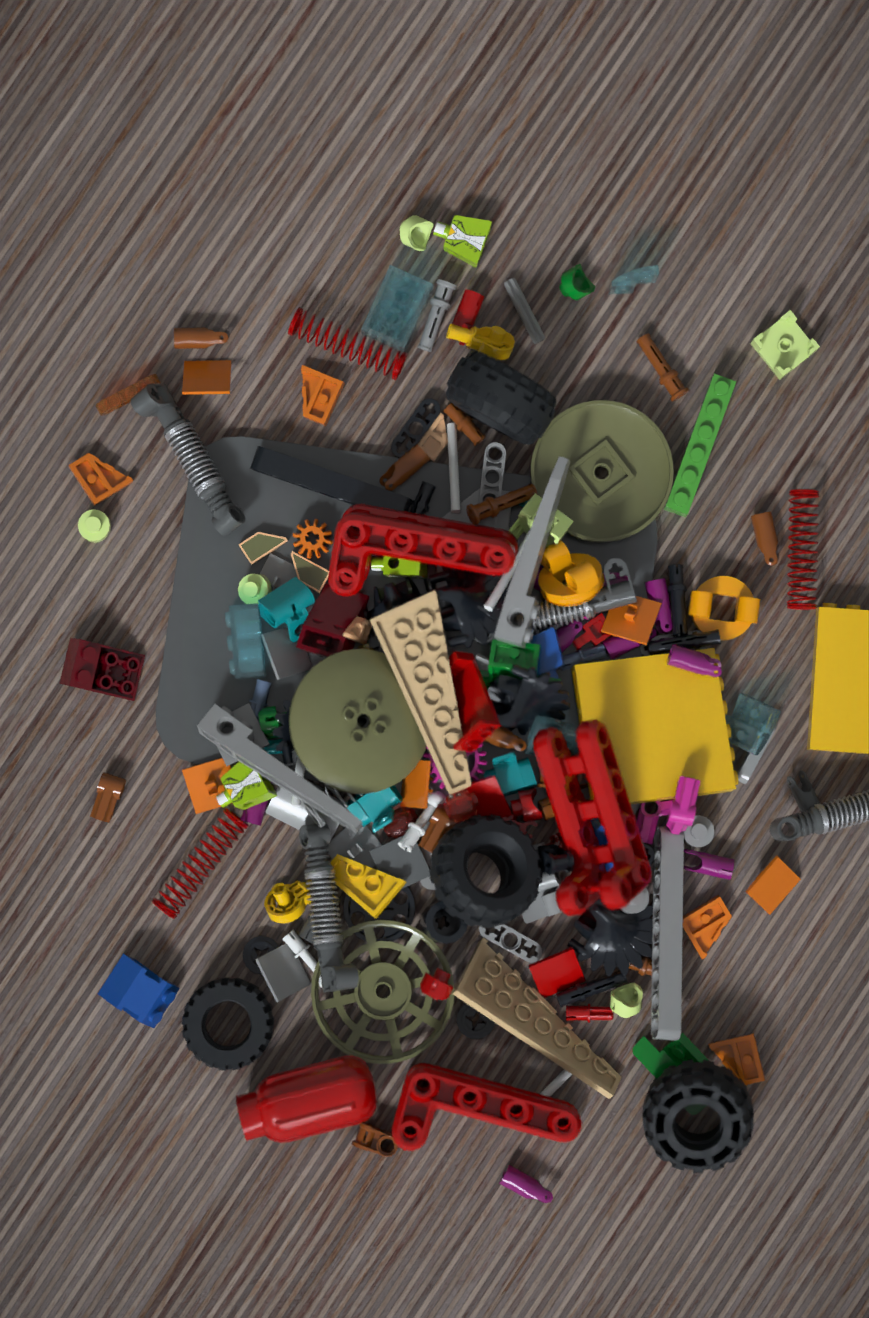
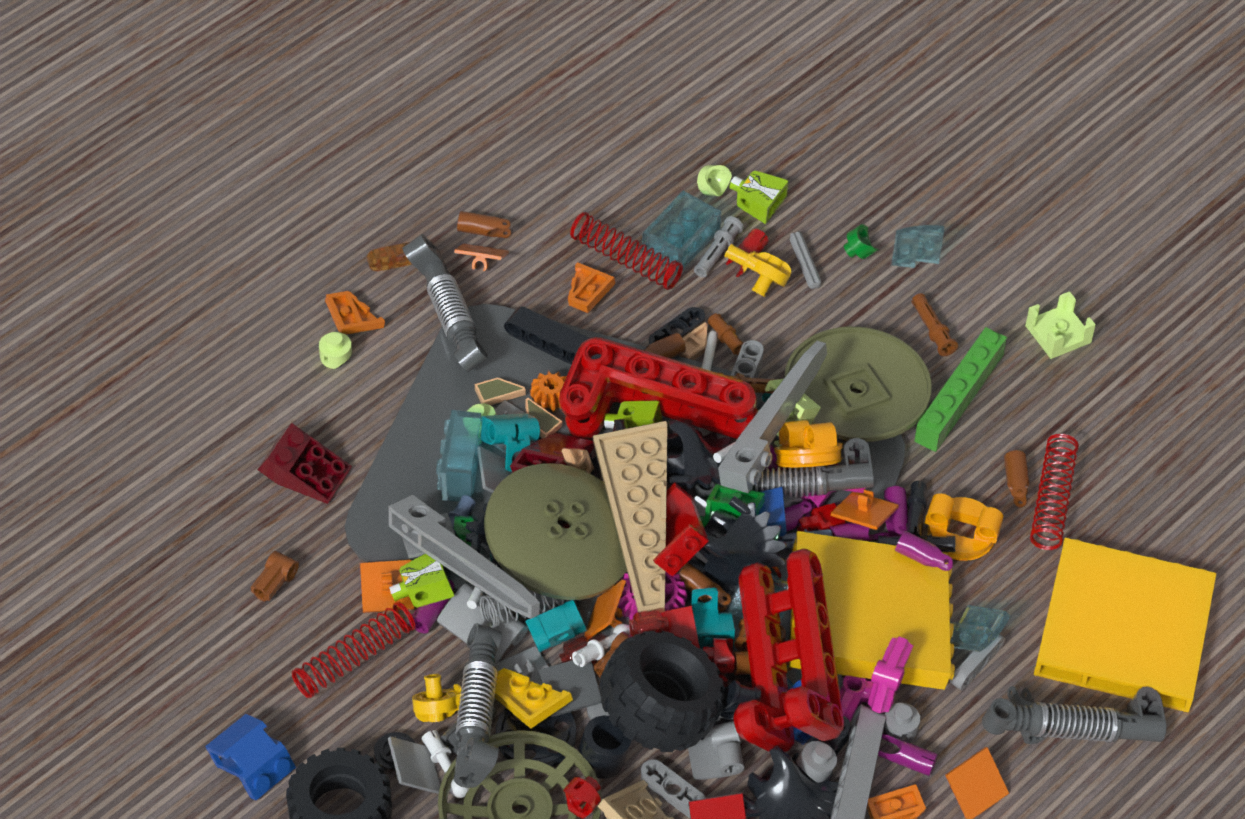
camera: 10 degrees right, 35 degrees down
(501, 397) = (768, 295): black tyre -> none

